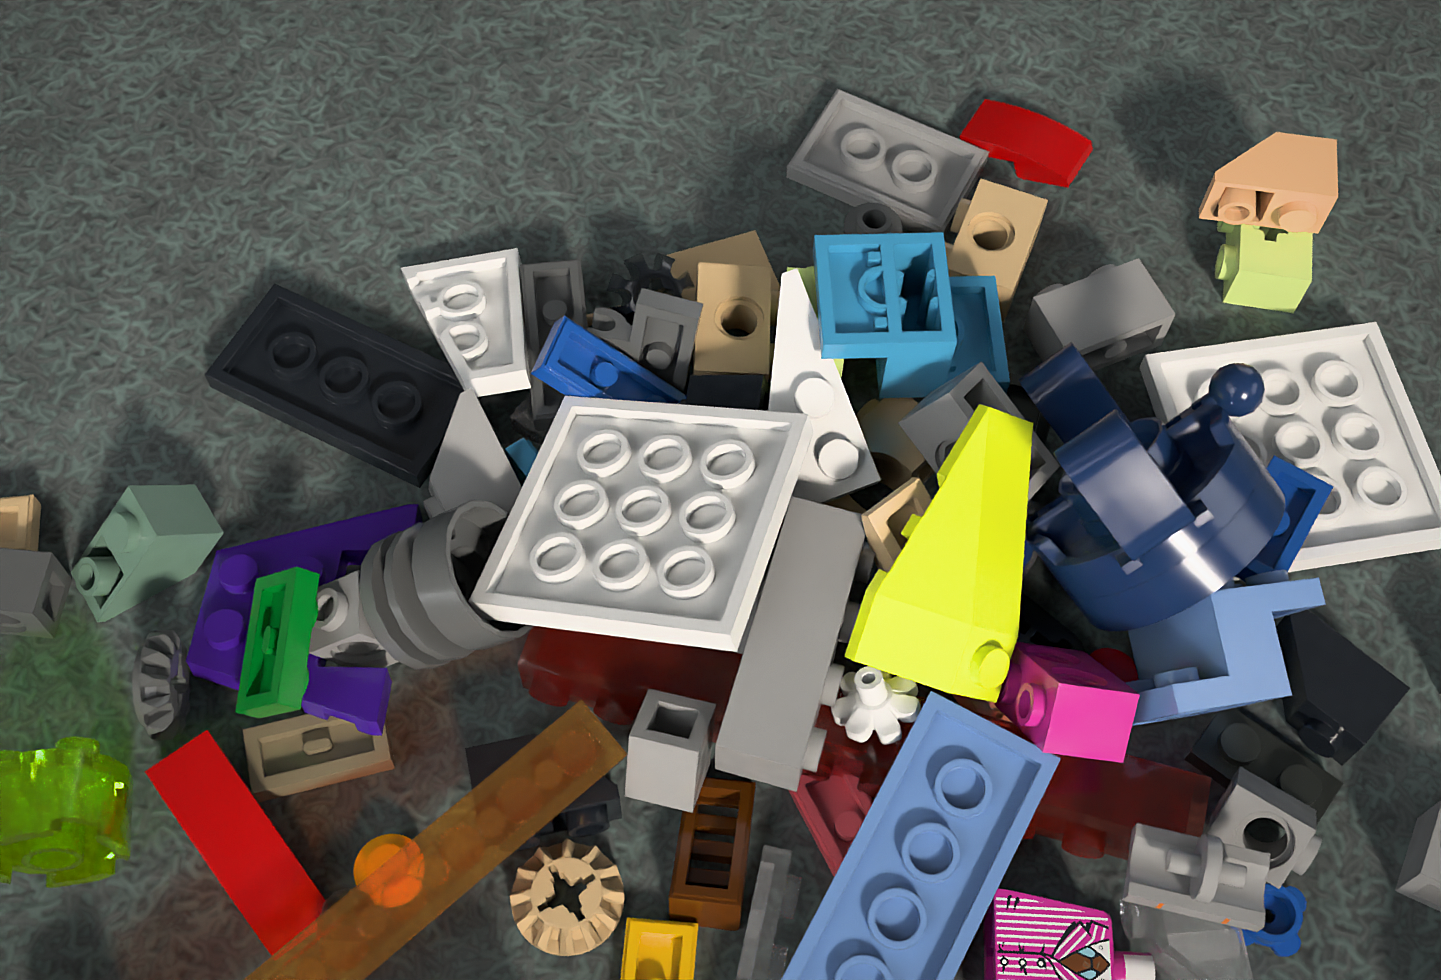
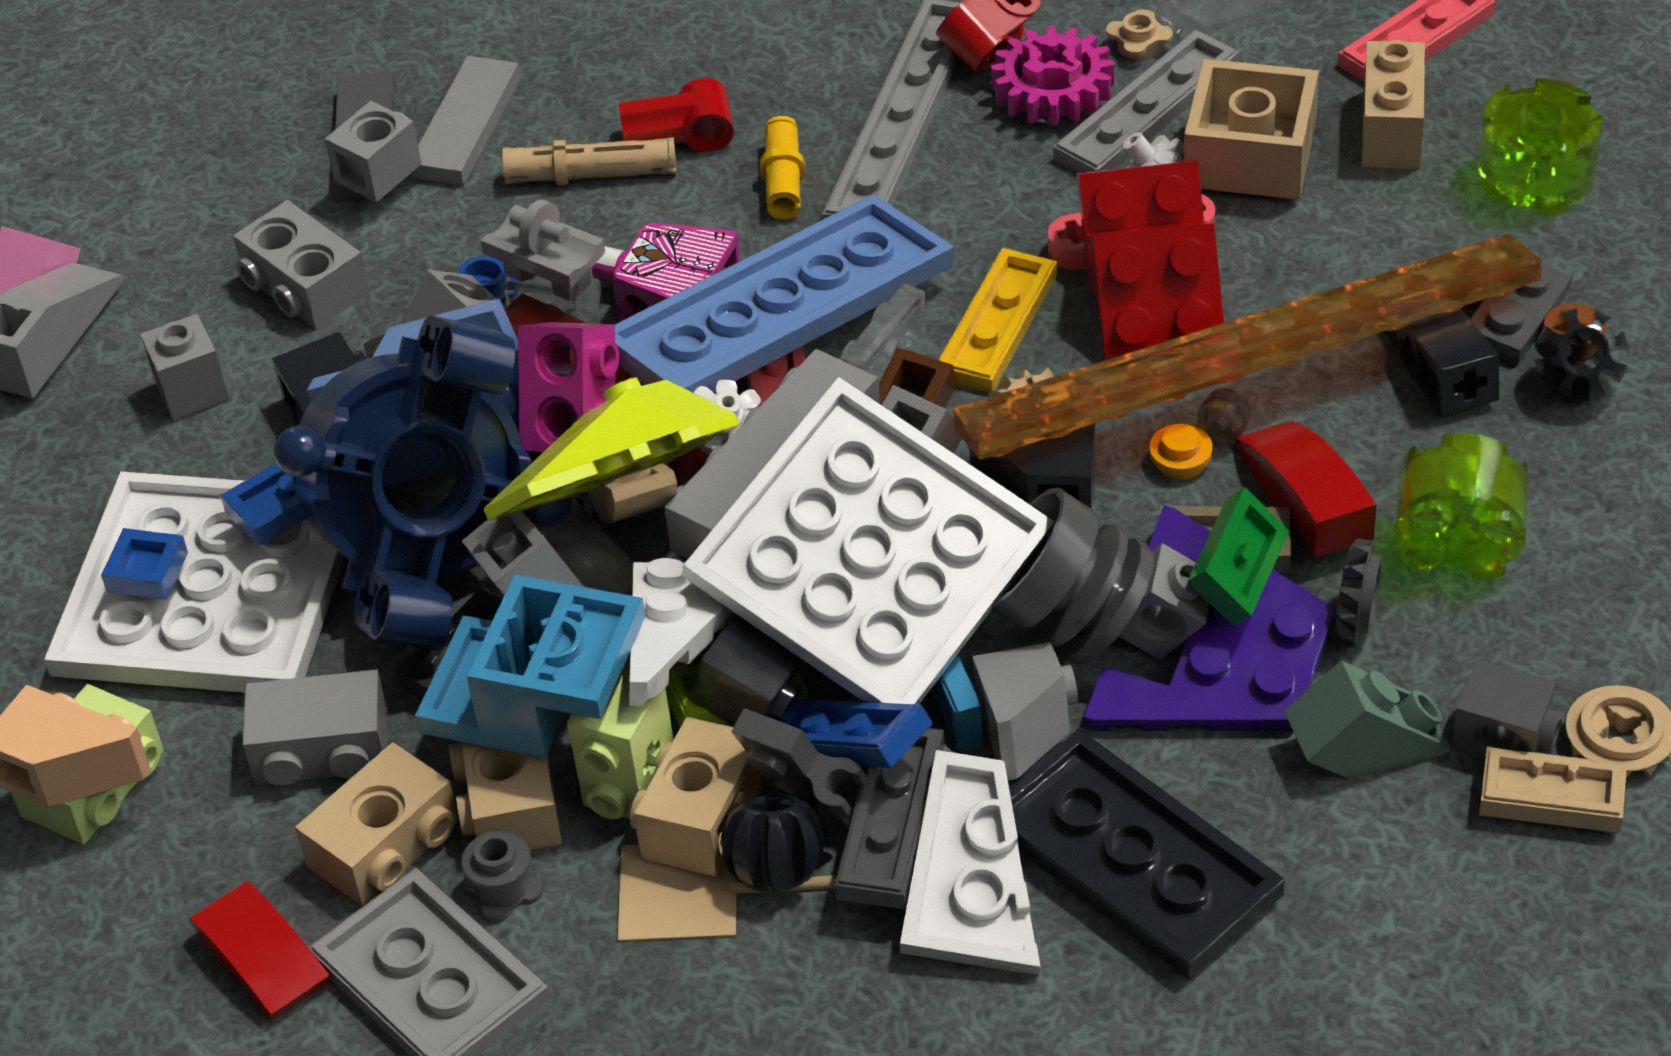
camera: 155 degrees left, 15 degrees down
(1353, 408) = (144, 563): none -> blue plate

